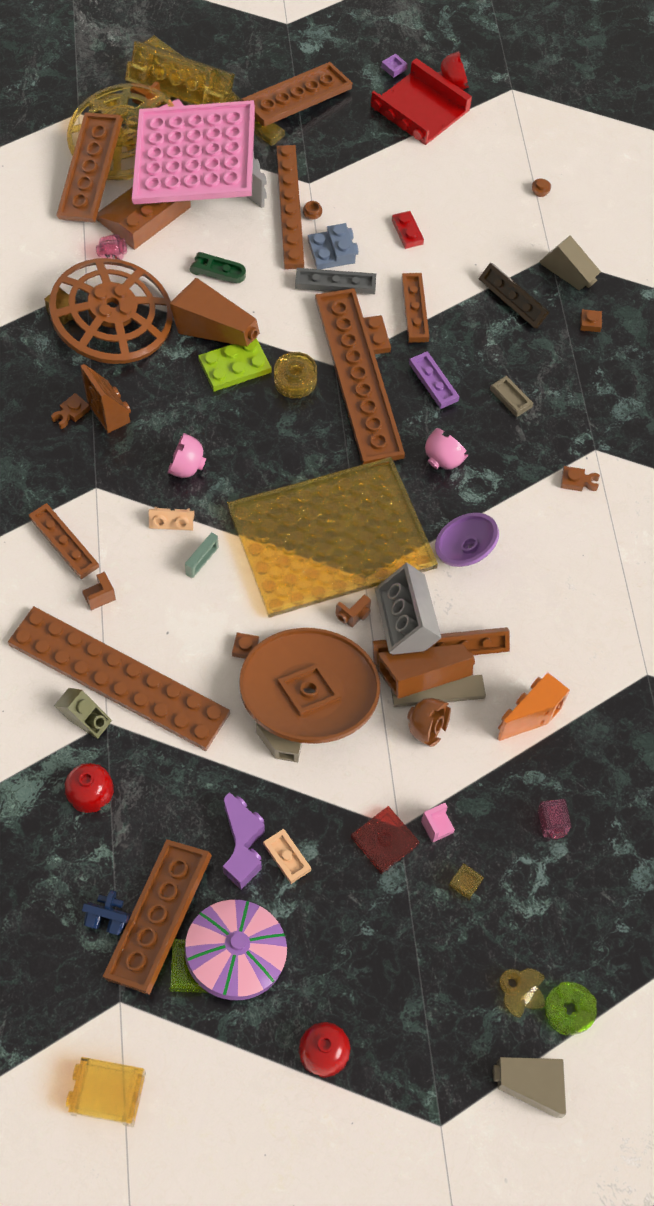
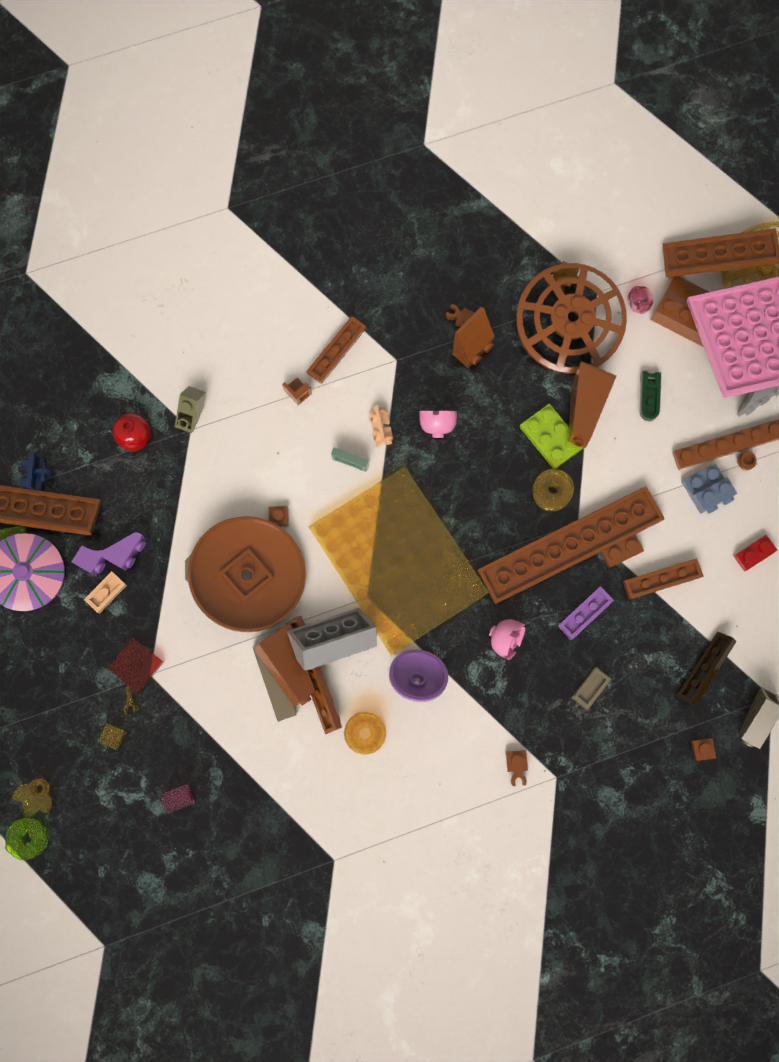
camera: 80 degrees right, 15 degrees up
(119, 678) = (228, 428): dark orange plate -> none
(335, 280) = (670, 501): dark grey plate -> none
(357, 612) = (329, 599): dark orange bracket -> none
(428, 719) = (239, 676): dark orange cylinder -> none
(428, 855) = (129, 701): none -> clear yellow hand
(437, 823) = (154, 703): bright pink panel -> none
(522, 597) = (356, 724): none -> clear yellow wheel
(534, 708) = (270, 768): orange slope -> none

